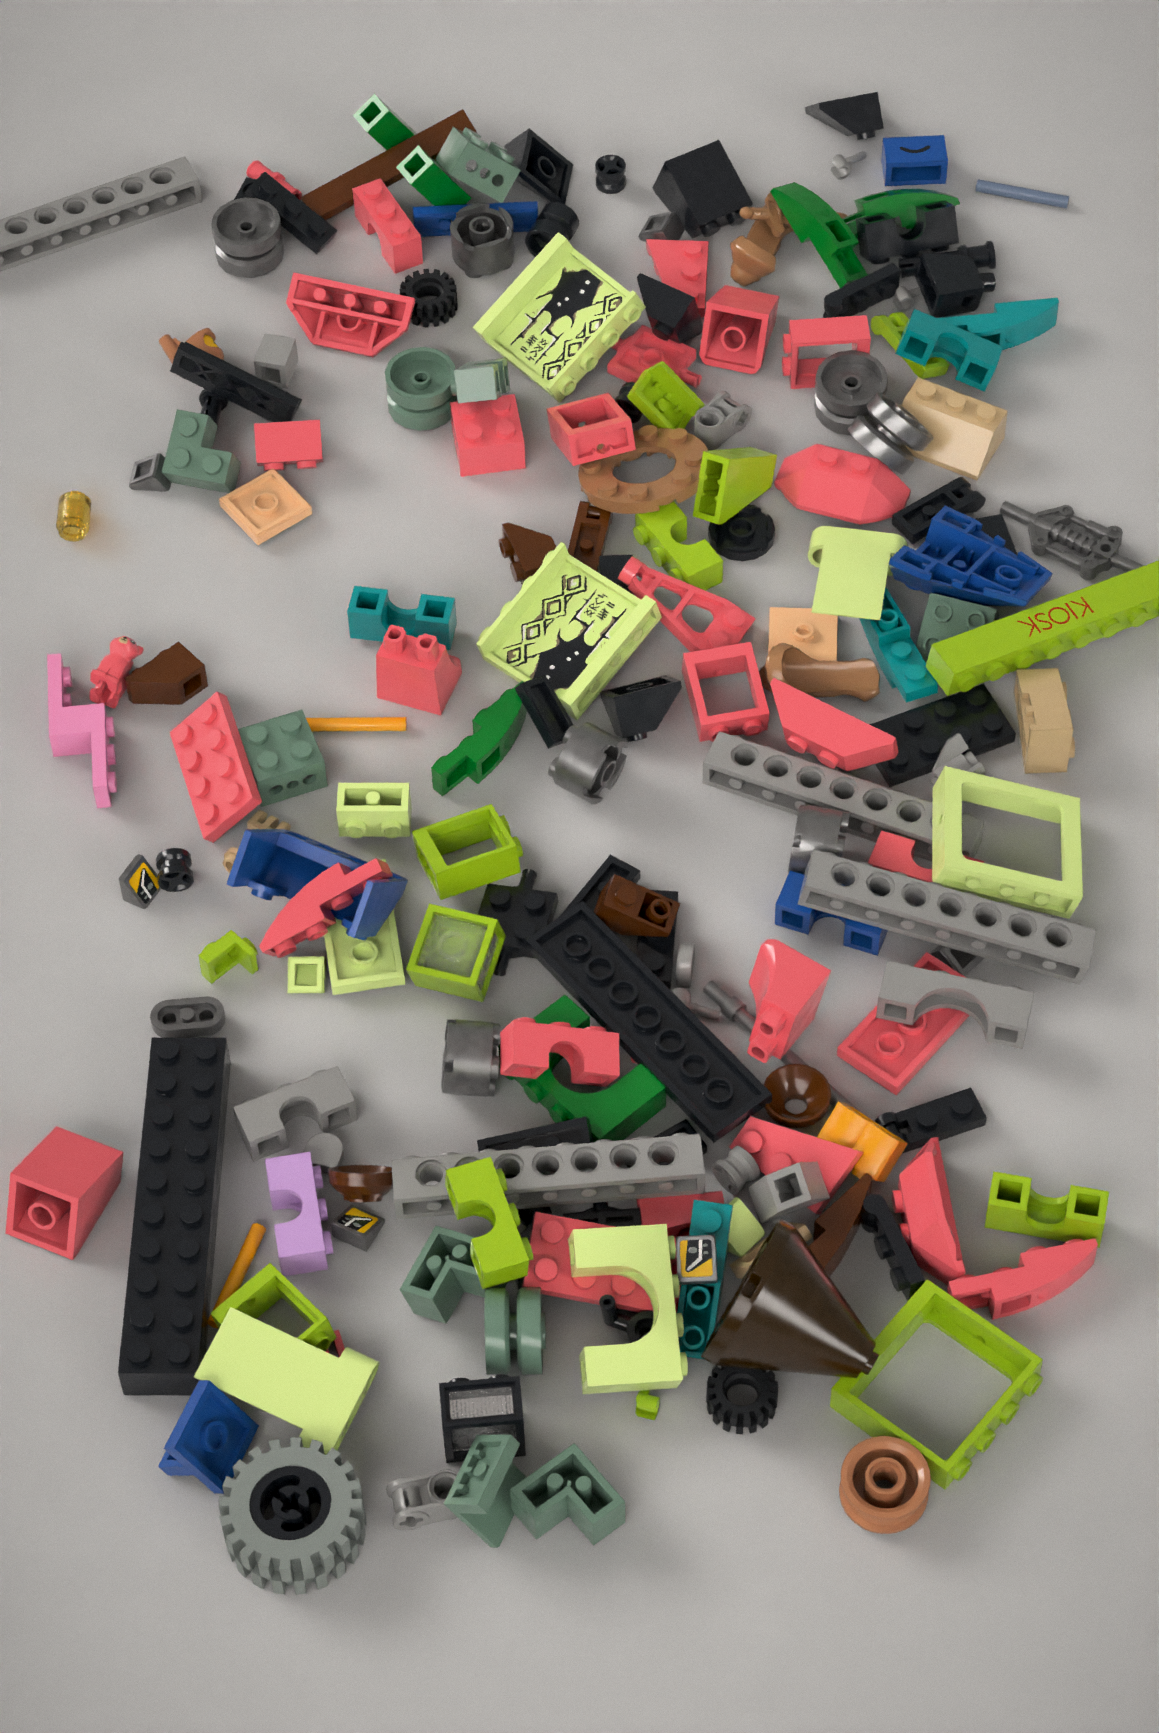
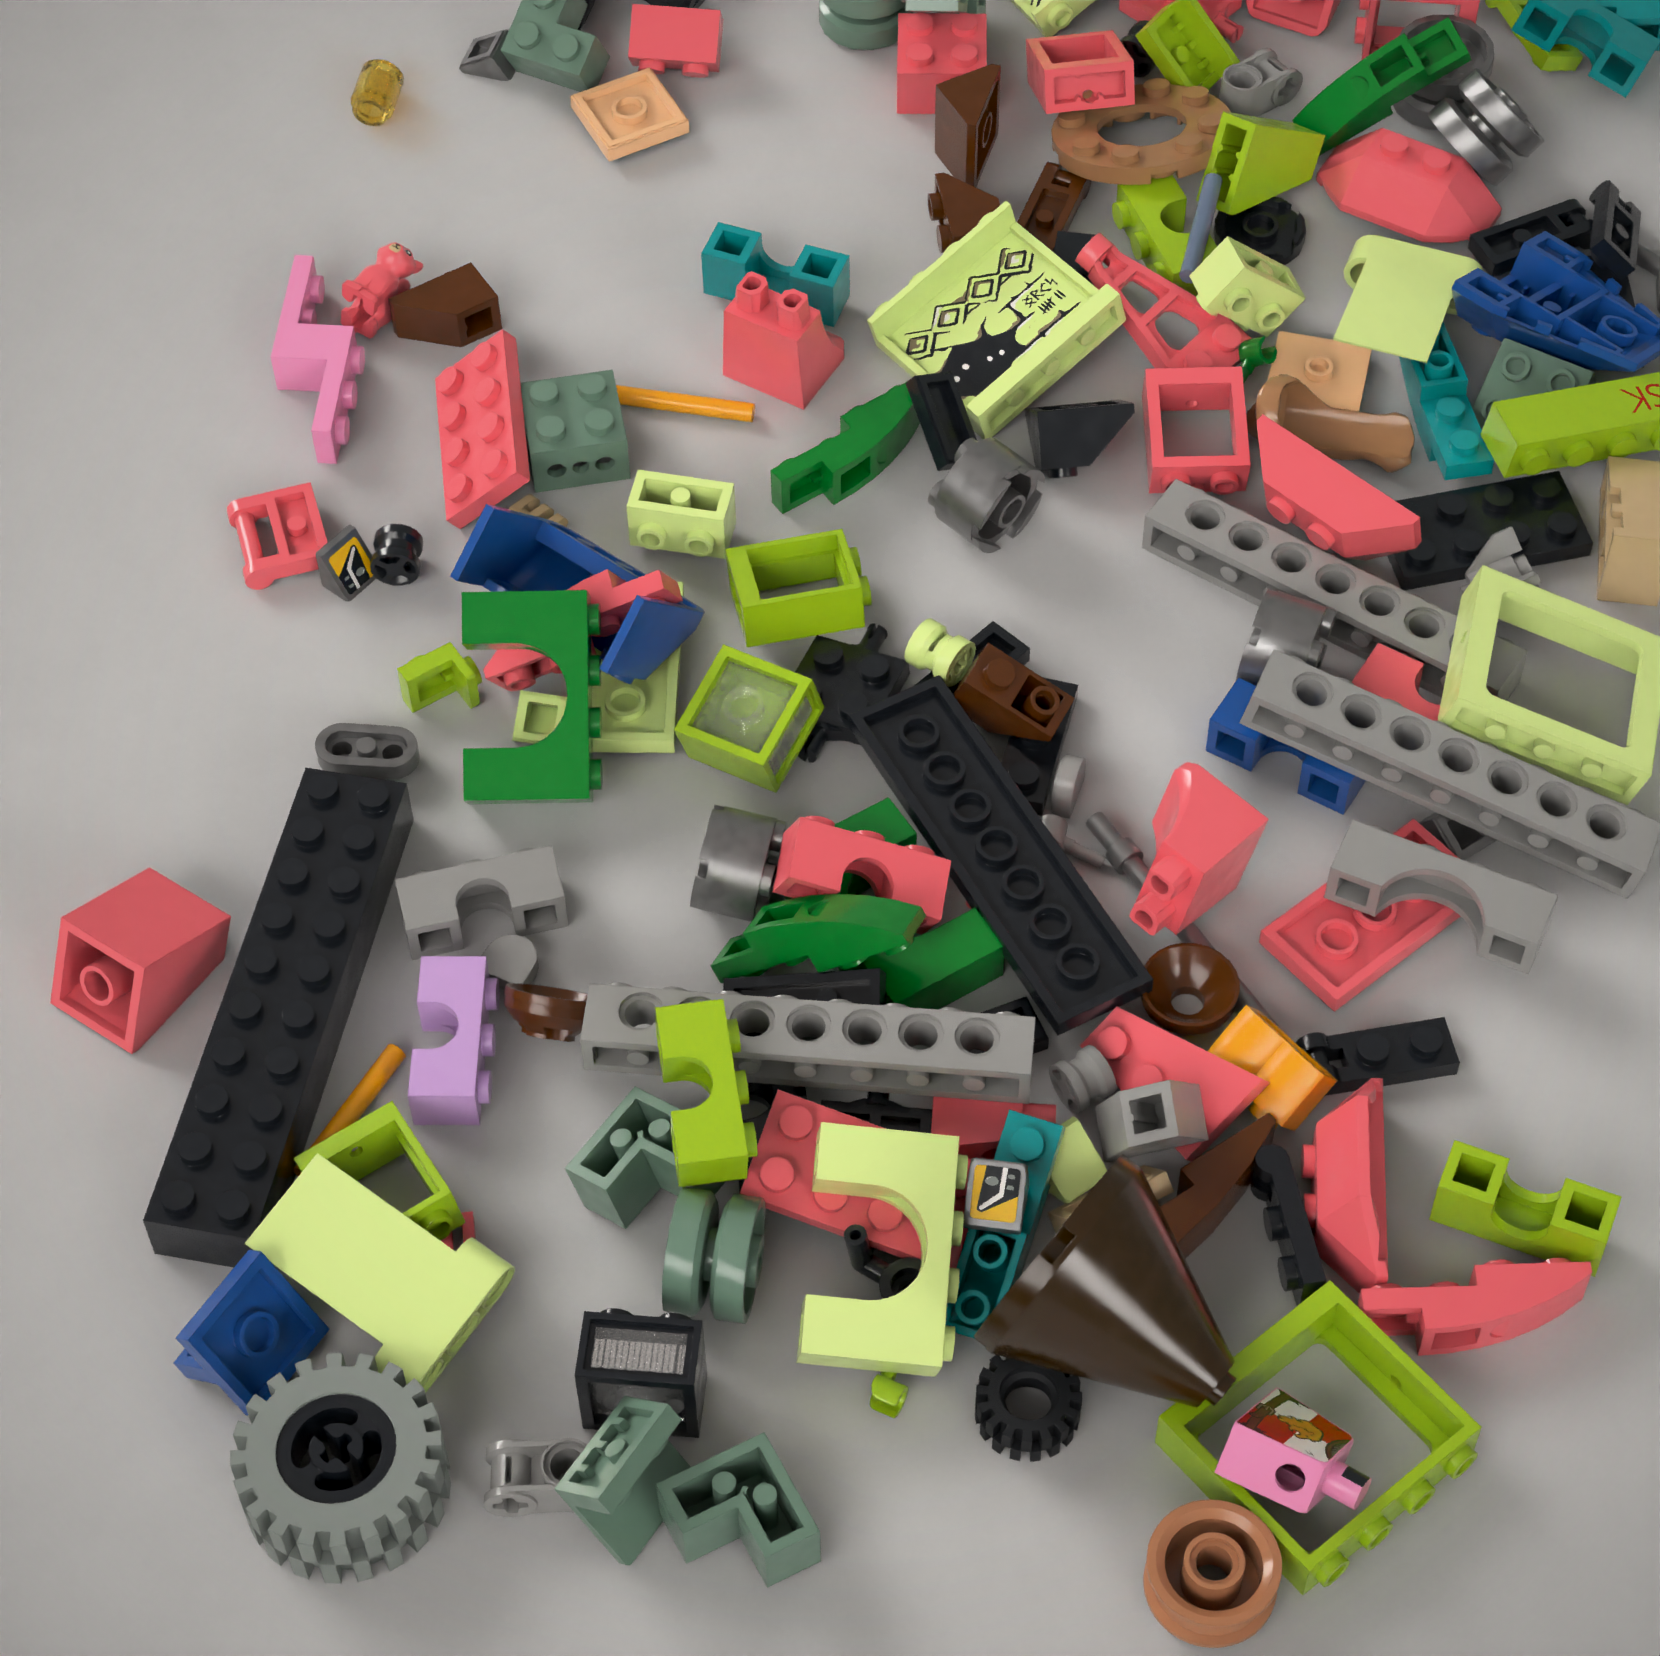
camera: 10 degrees right, 0 degrees up
(95, 861) = (295, 530): none -> coral plate
(314, 911) = (563, 762): none -> green arch
(357, 1227) = (532, 1072): flat silver slope -> none
(517, 481) = (967, 121): none -> reddish brown slope
(543, 1094) = (825, 928): none -> green slope
(579, 884) = (939, 652): none -> yellowish green wheel
(701, 539) = (1201, 225): none -> sand blue bar
(742, 580) = (1246, 287): none -> yellowish green brick
(755, 628) = (1253, 356): none -> green hand
(810, 409) = (1381, 80): none -> green slope
(923, 1399) = (1291, 1455): none -> bright pink torso
(962, 428) = (1583, 134): tan slope -> none
(993, 498) = (1614, 231): none -> black plate

